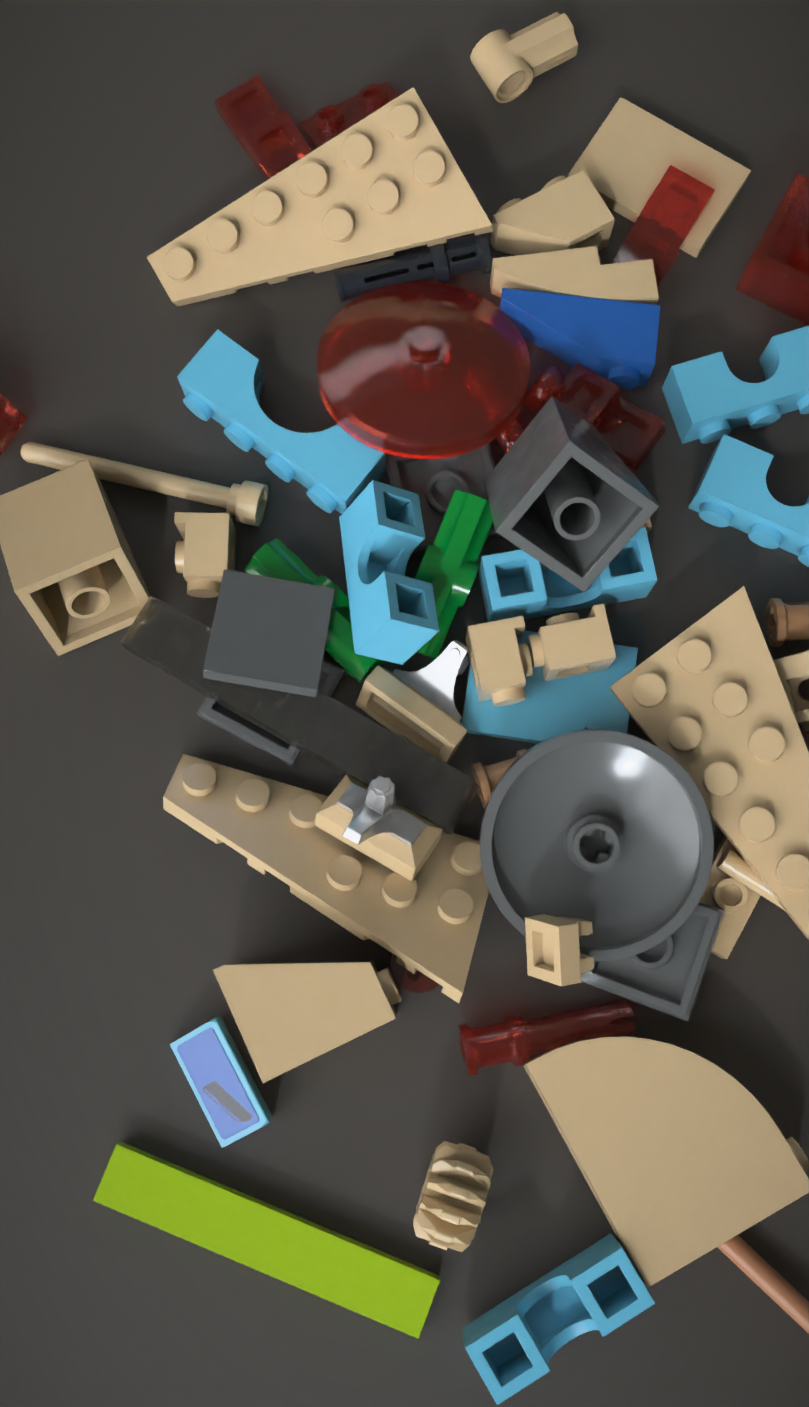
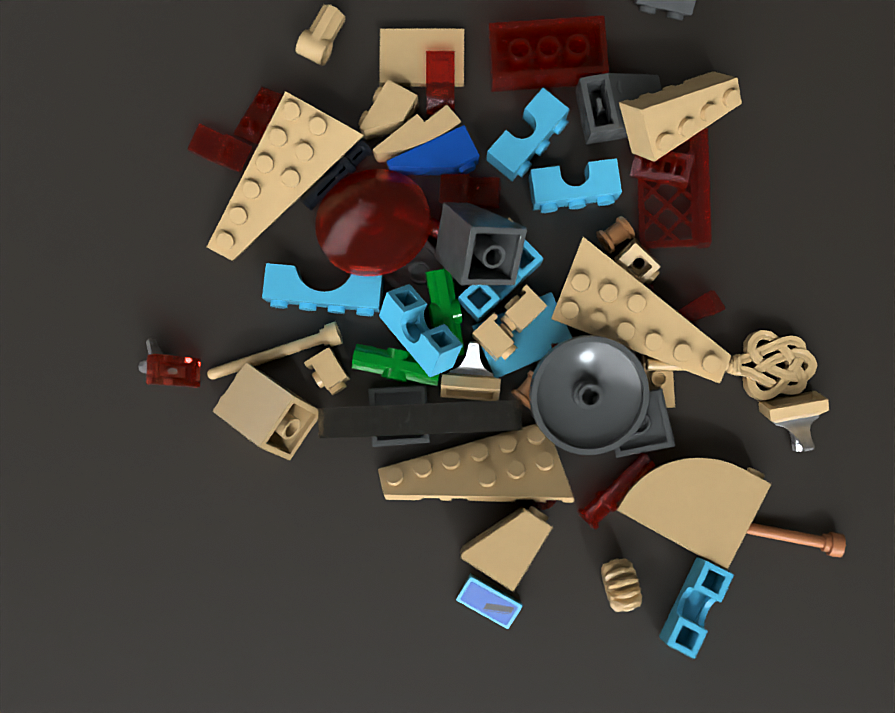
camera: 30 degrees left, 5 degrees up
(268, 633) = (385, 392): dark grey tile -> none
(268, 1239) = (552, 654): lime tile -> none
(379, 825) = (488, 446): piece -> none
(544, 388) = (434, 195): clear red piece -> none
(555, 949) = (600, 452): tan tile -> none

